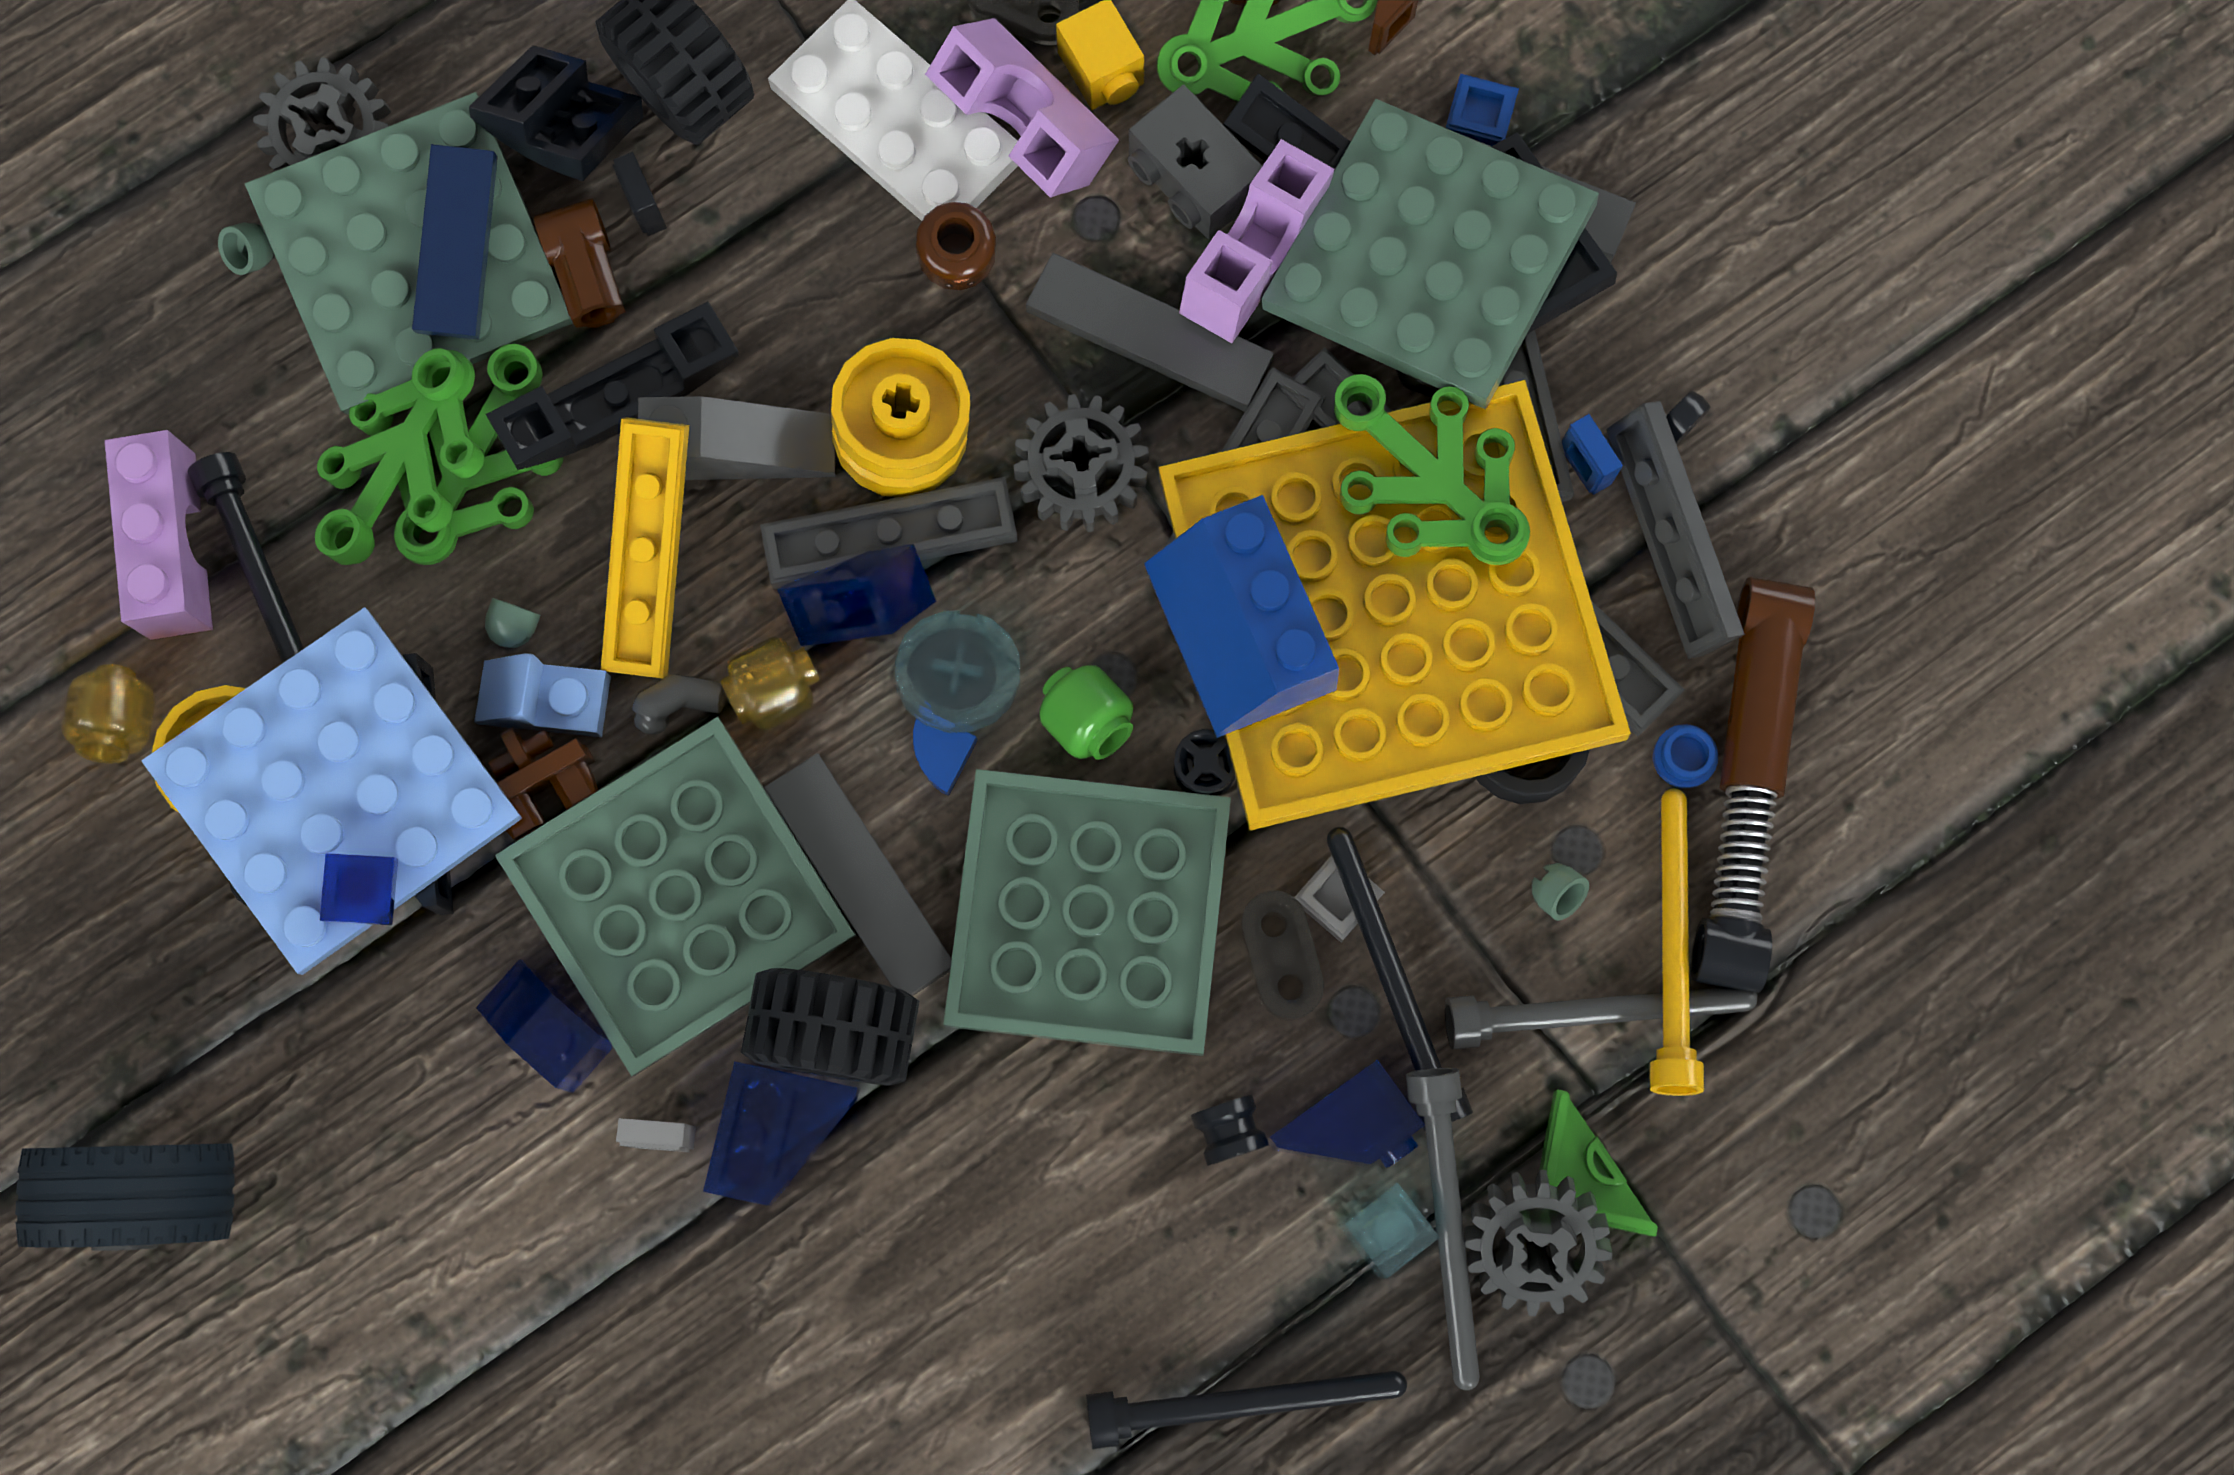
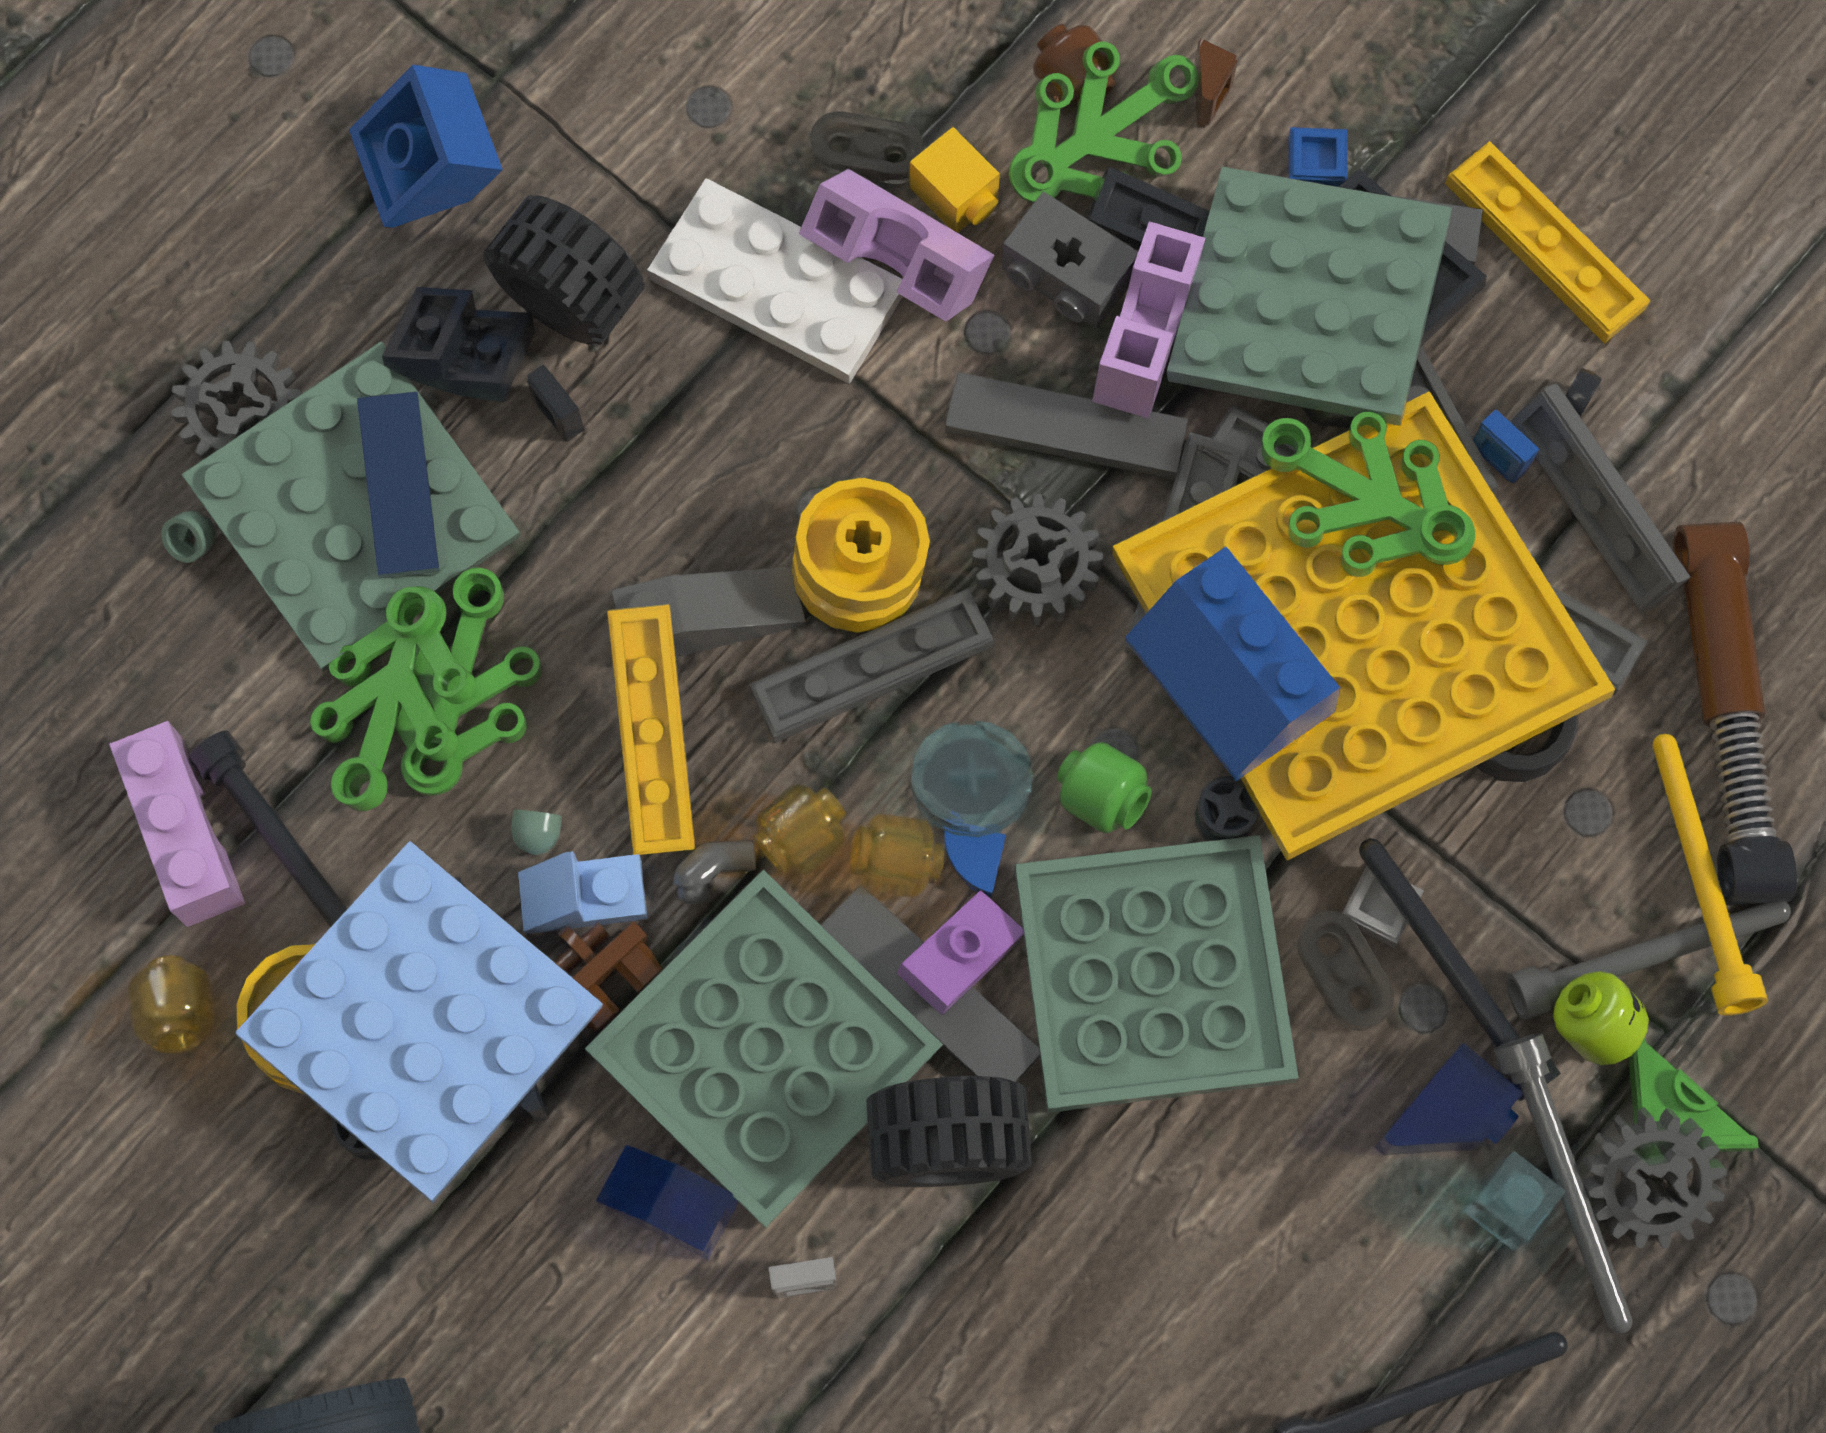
camera: 15 degrees left, 5 degrees down
(358, 889) = (474, 1105): clear blue tile -> none
(578, 250) = (511, 469): reddish brown piece -> none
(590, 409) = (581, 593): black slope -> none
(771, 1130) = (911, 1247): clear blue wing -> none
(858, 597) = (862, 730): clear blue slope -> none
(859, 732) = (896, 855): none -> clear yellow head
(898, 845) = (960, 952): none -> medium lavender plate
(956, 246) = (869, 385): reddish brown head -> none
(1229, 1130) = (1341, 1143): black wheel -> none
(1527, 1067) = (1601, 1018): none -> lime head
(1560, 890) = (1584, 851): sand green hinge -> none
(1685, 756) = (1664, 702): blue plate -> none
(1695, 251) = (1547, 242): none -> yellow tile

